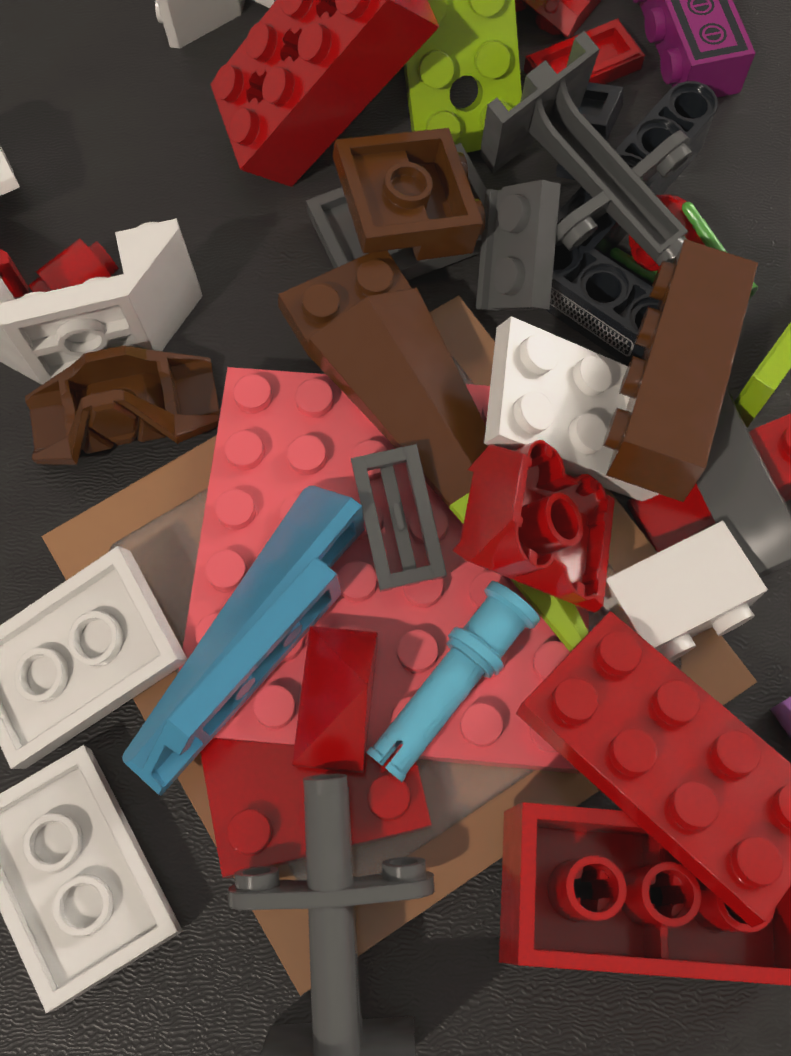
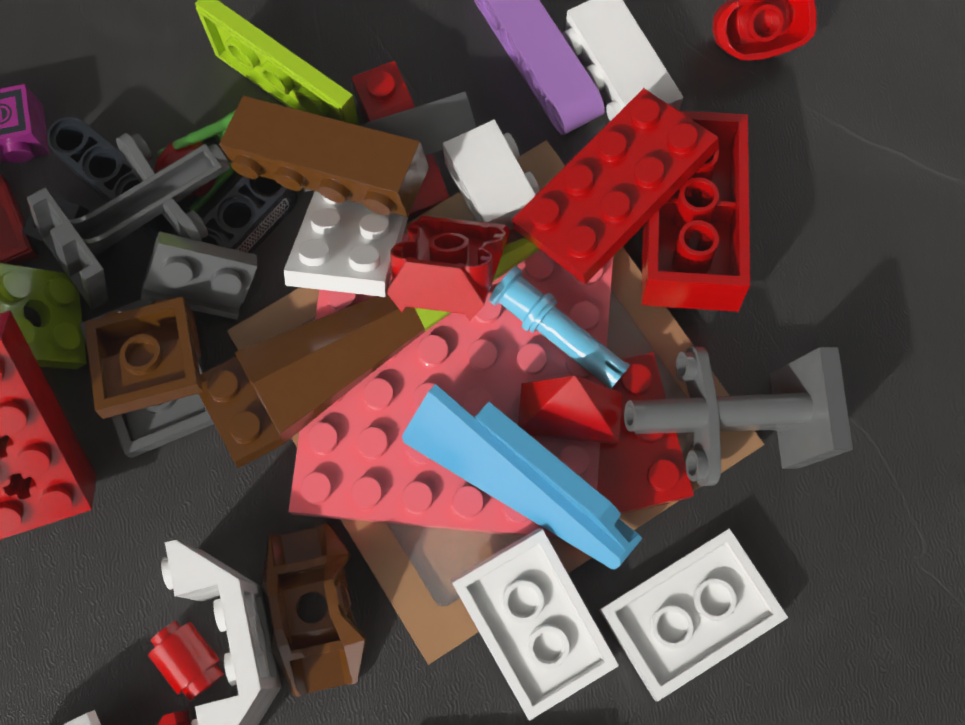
camera: 90 degrees left, 5 degrees up
(385, 461) = (433, 346): dark grey tile -> none

